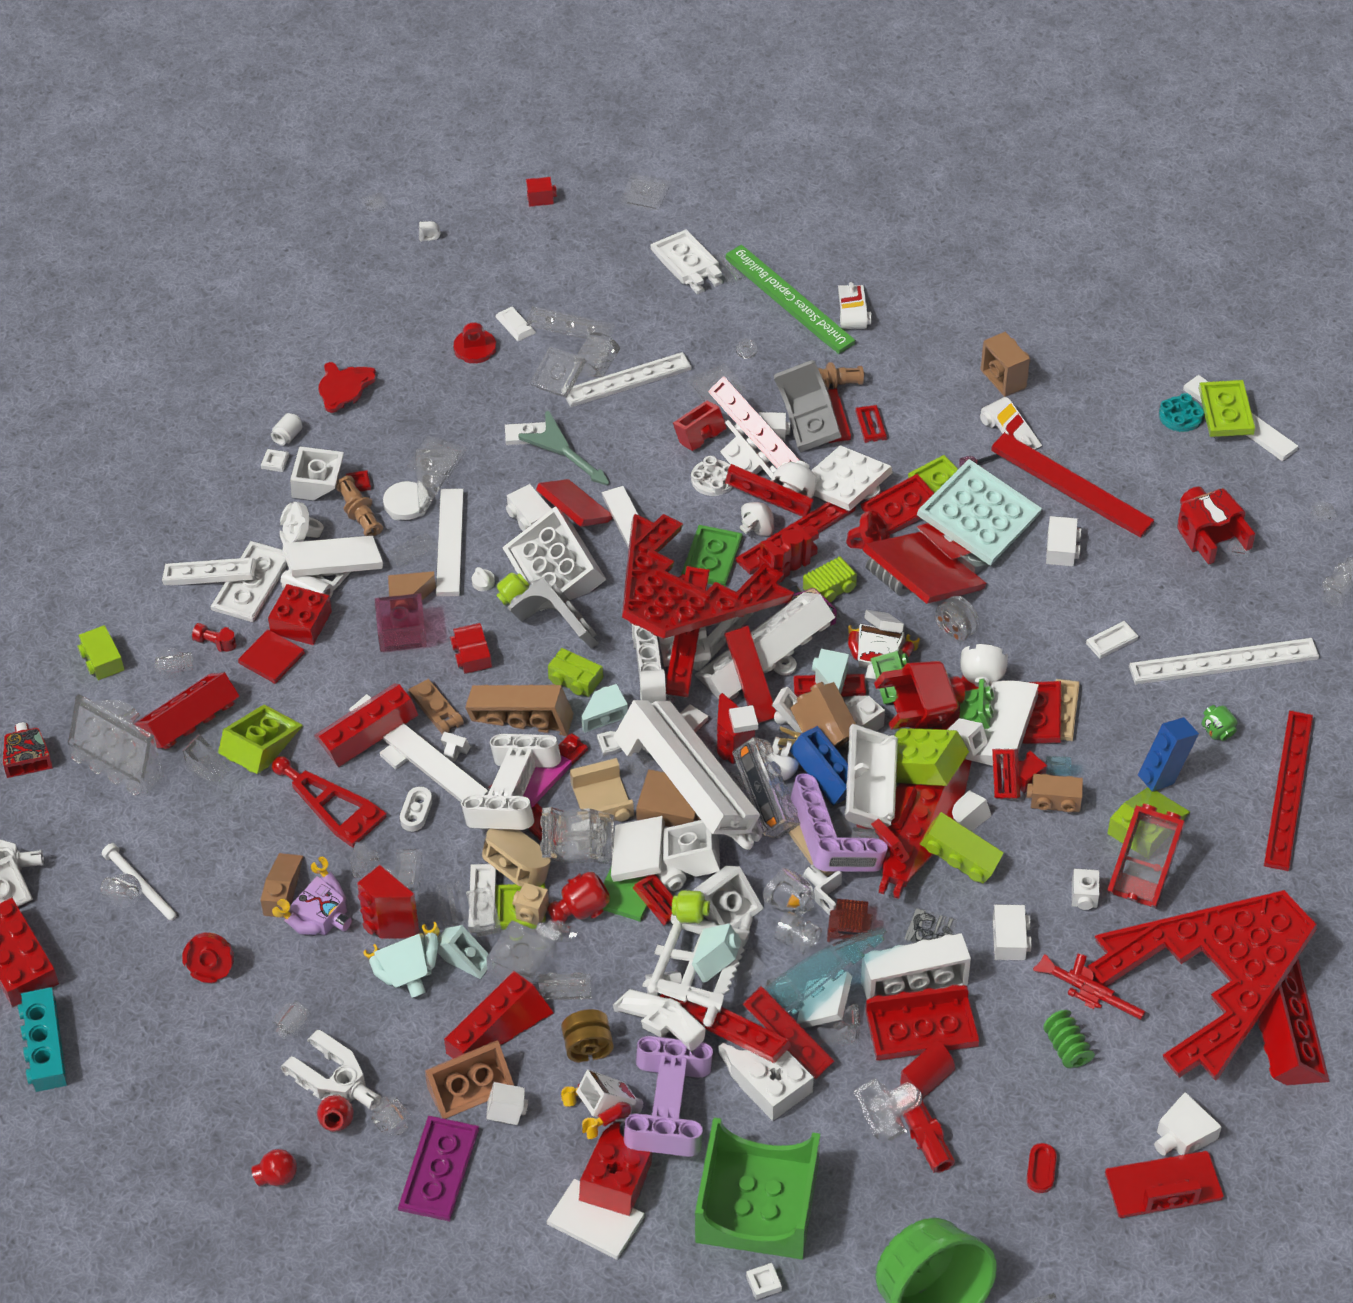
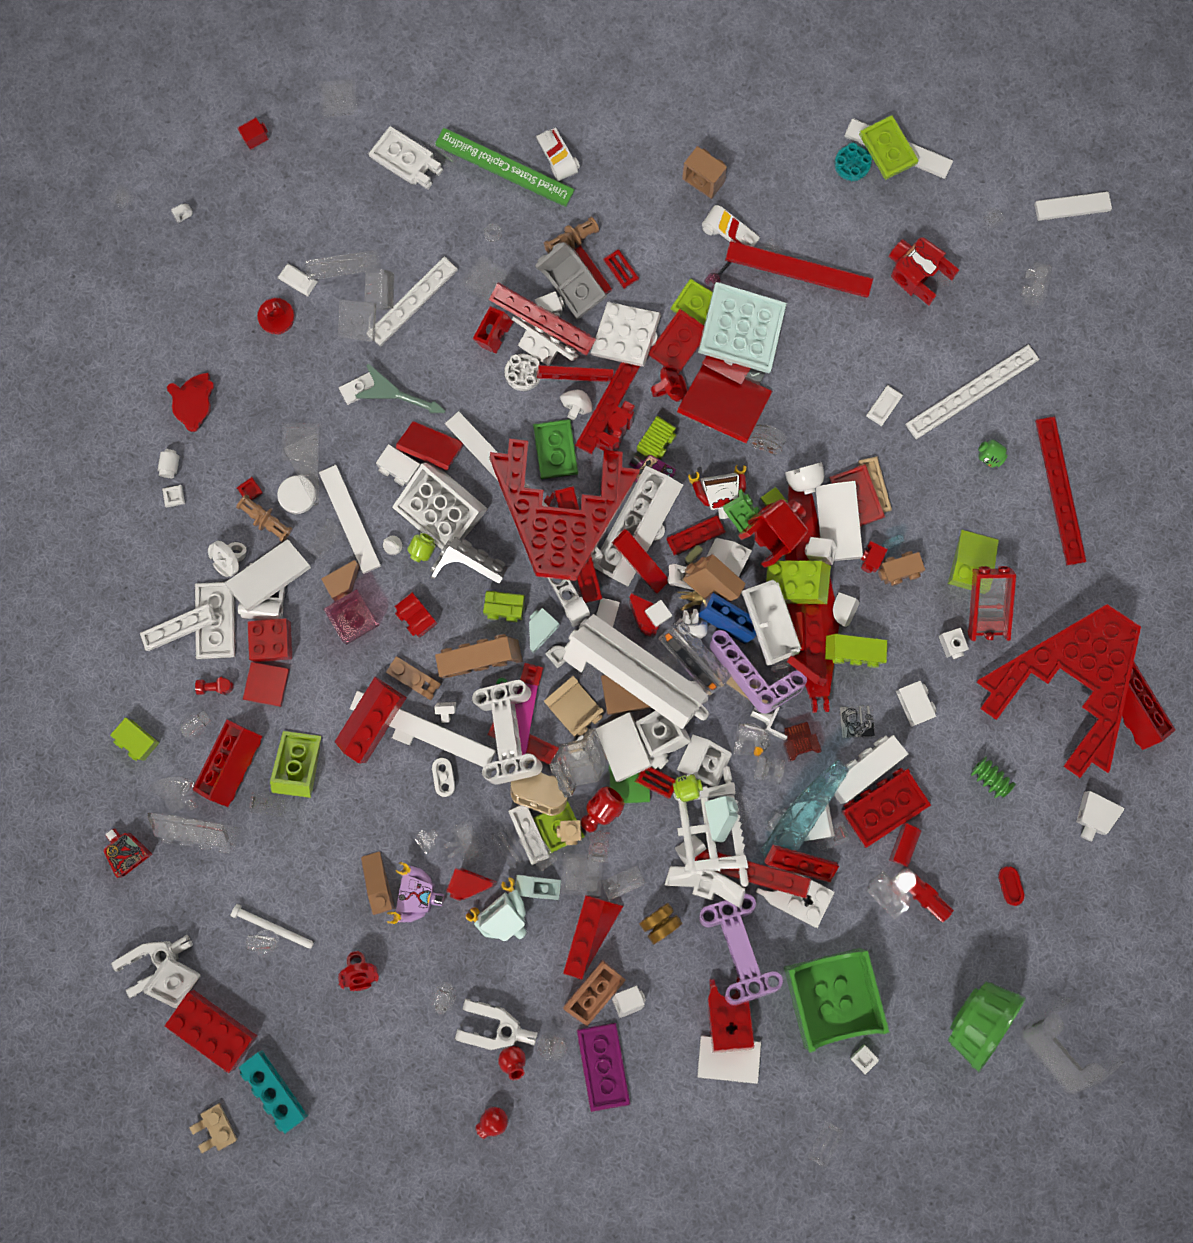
camera: 20 degrees left, 30 degrees up
(315, 472) = (215, 501): white slope -> none
(351, 830) = (407, 806): red plate -> none
(604, 1098) = (698, 971): torso -> none
(796, 477) = (592, 356): white cylinder -> none
(831, 667) = (696, 530): light aqua slope -> none
(884, 621) = (717, 467): white tile -> none
(977, 704) = (816, 519): bright green bracket -> none
(1010, 765) = (858, 557): red tile -> none
(1062, 541) = (814, 329): white brick -> none
(1090, 990) = (988, 726): red piece -> none
(1163, 1184) = (1098, 864): red bracket -> none
(1168, 754) = (975, 508): blue brick -> none

